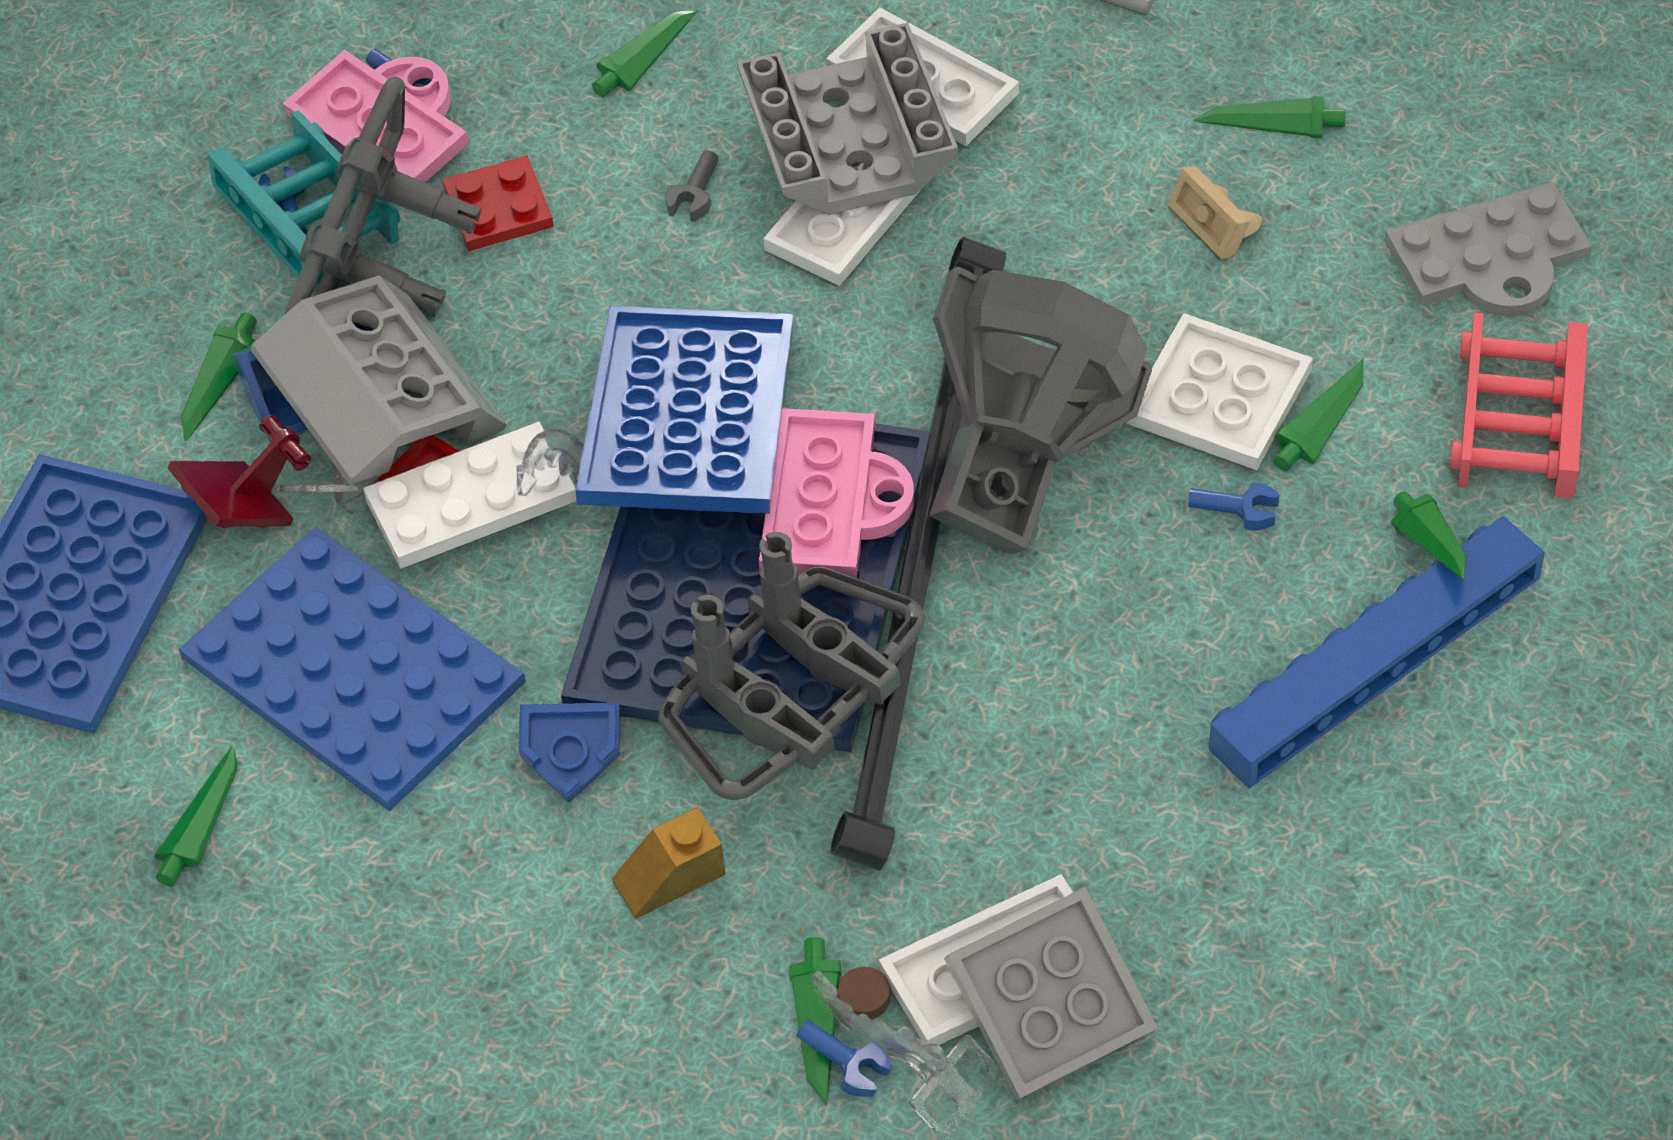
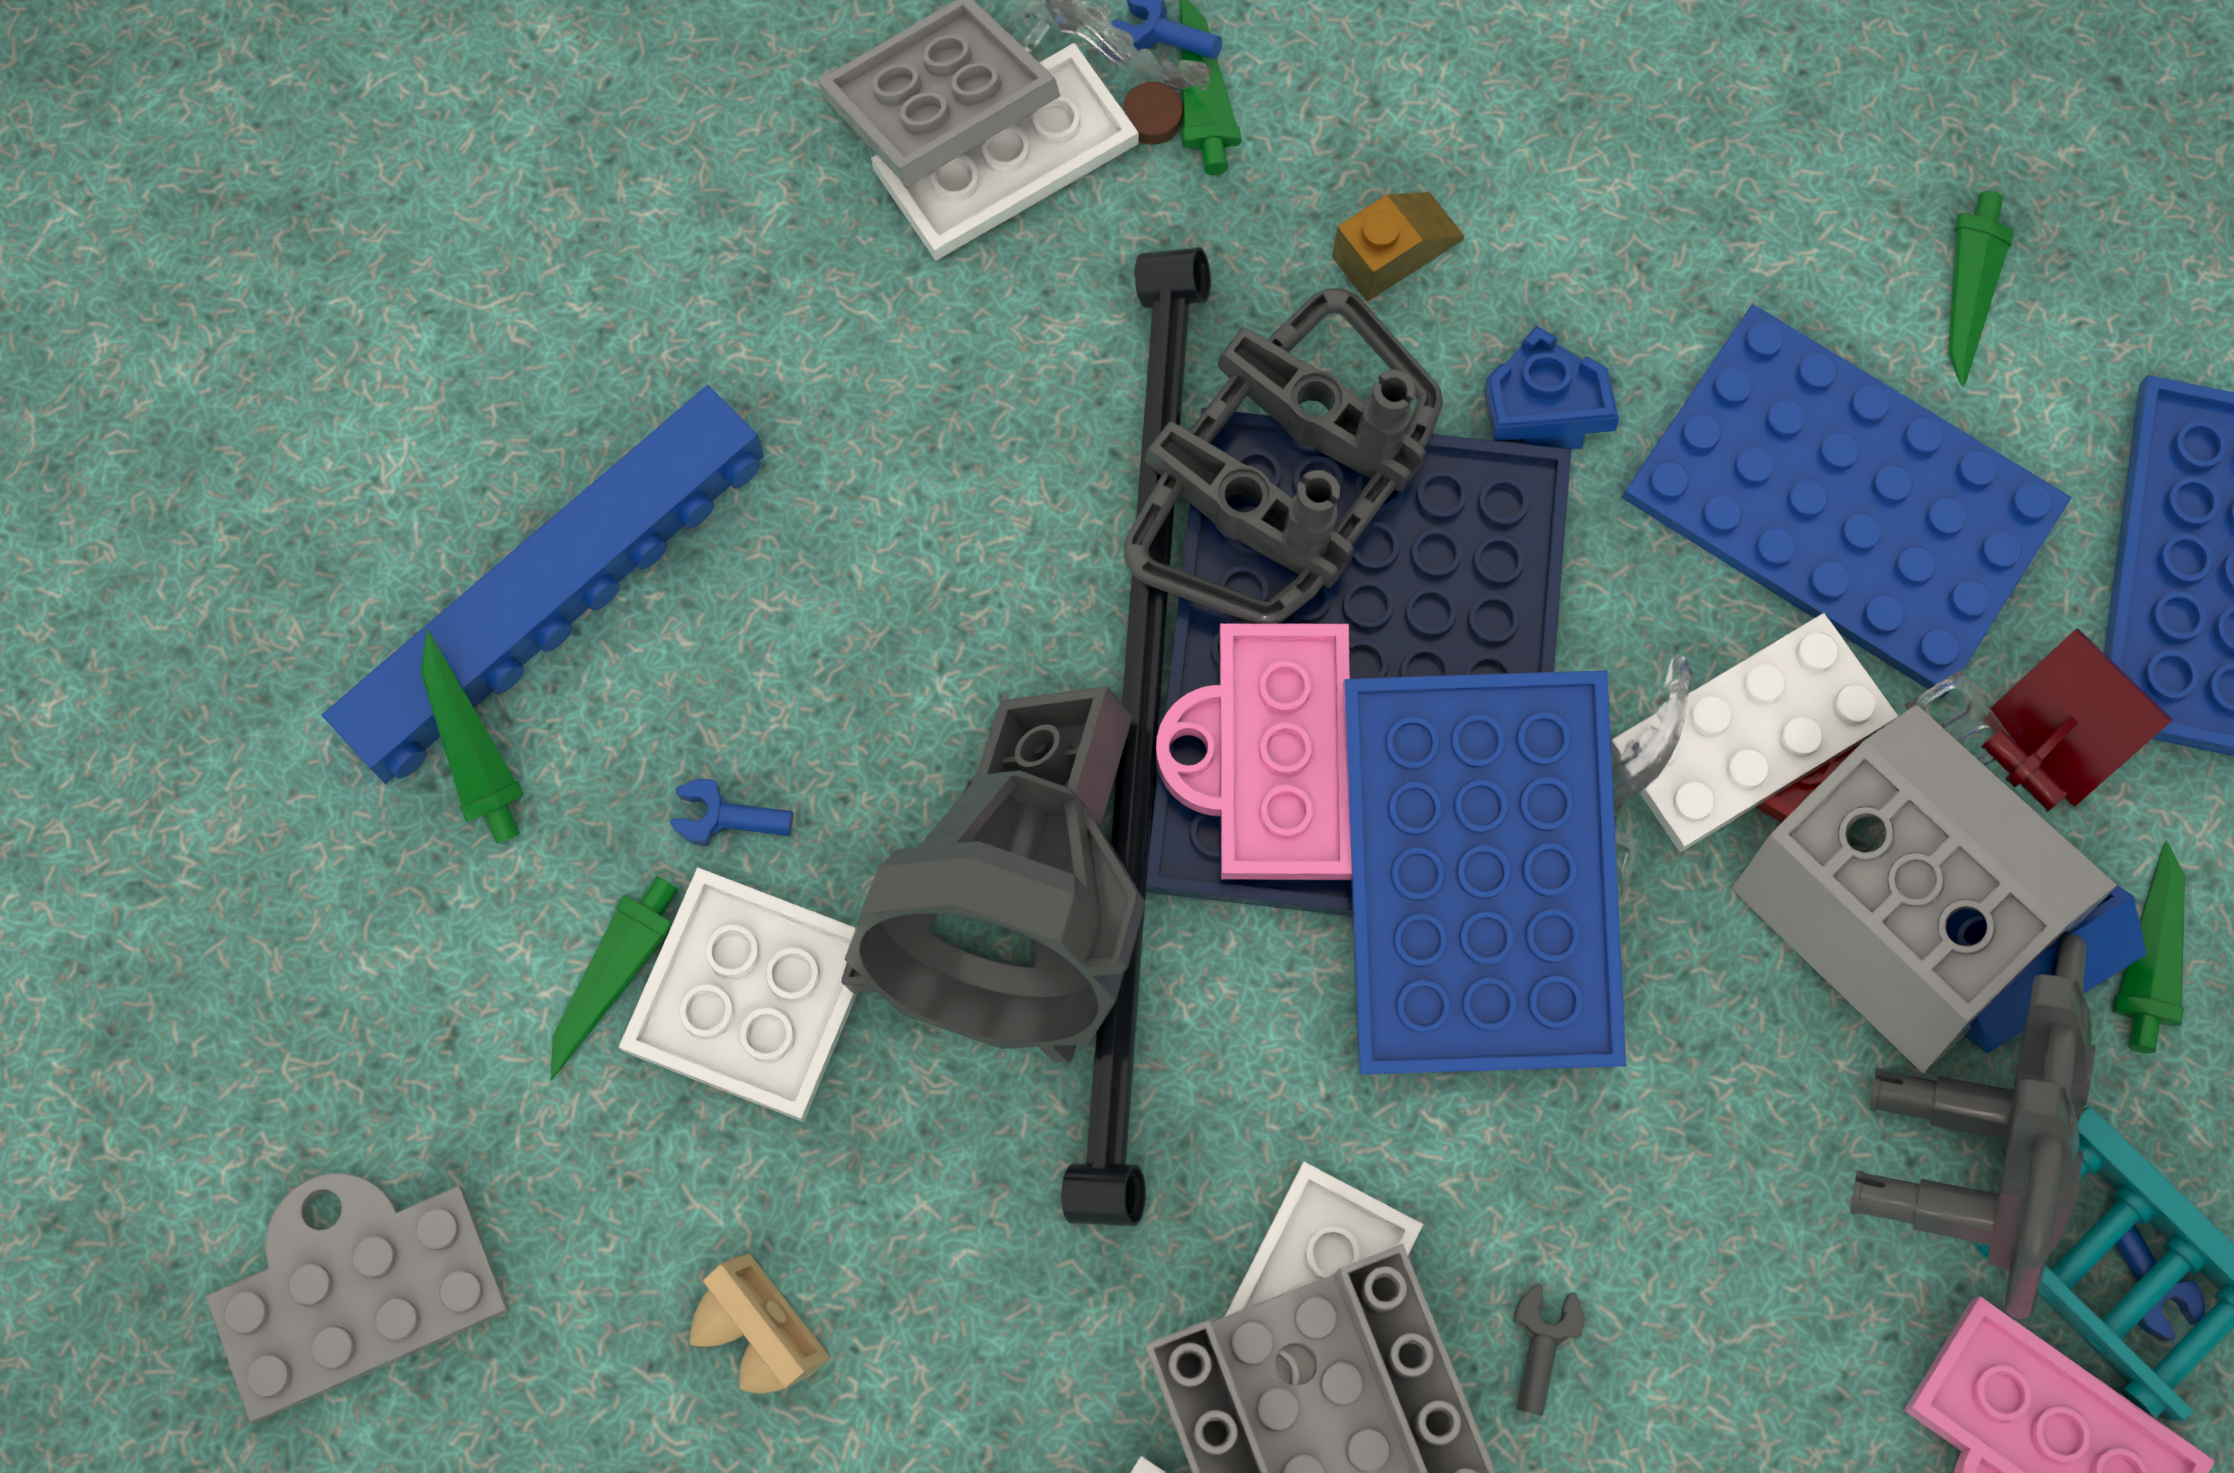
camera: 170 degrees right, 20 degrees up
(508, 198) = (1833, 1296): red plate -> none
(1563, 391) = (277, 950): coral fence -> none

